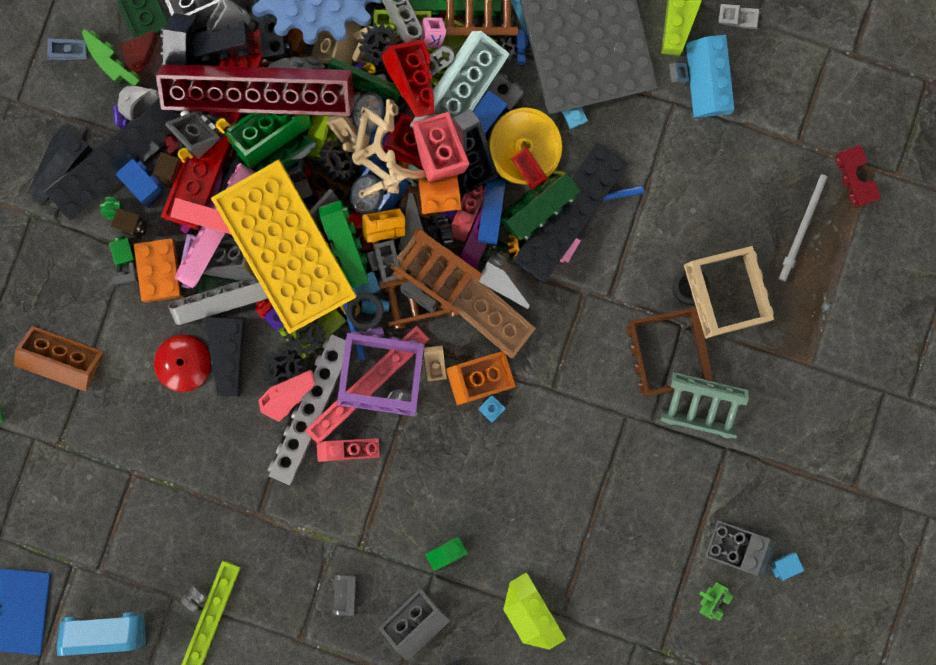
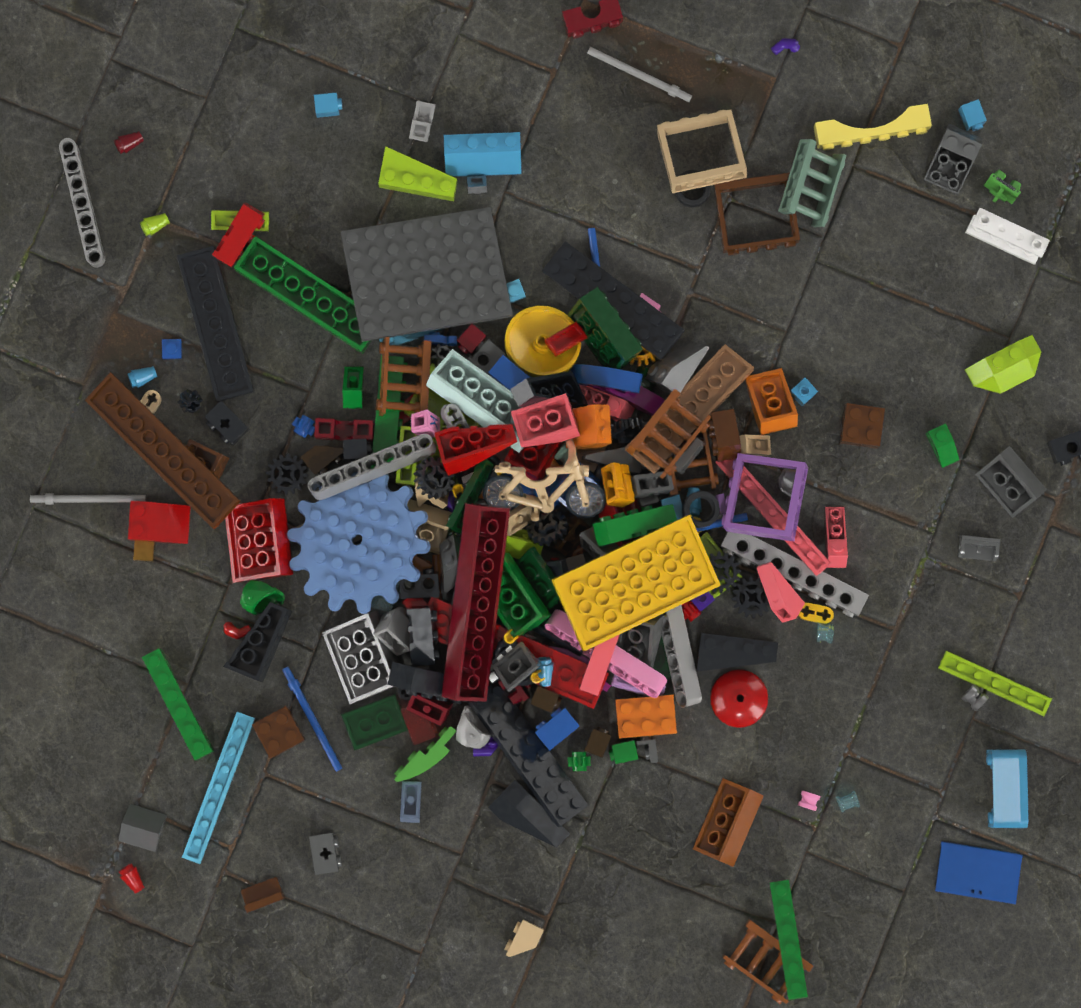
camera: 90 degrees left, 0 degrees up
(83, 437) = (809, 800): none -> bright pink wheel
(84, 476) = (848, 801): none -> clear light blue bush
(152, 58) = (430, 709): none -> dark red brick
(194, 164) = (546, 671): none -> dark azure cone
(250, 444) = (825, 633): none -> clear light blue wheel
(275, 435) = (815, 618): none -> yellow beam
(442, 331) = (724, 435): none -> reddish brown brick
(461, 470) = (862, 425): none -> reddish brown brick
(523, 76) = (470, 339): none -> dark red brick
(664, 607) = (1007, 236): none -> white fence
(778, 505) = (834, 133): none -> light yellow arch
(846, 372) = (785, 43): none -> dark purple arm

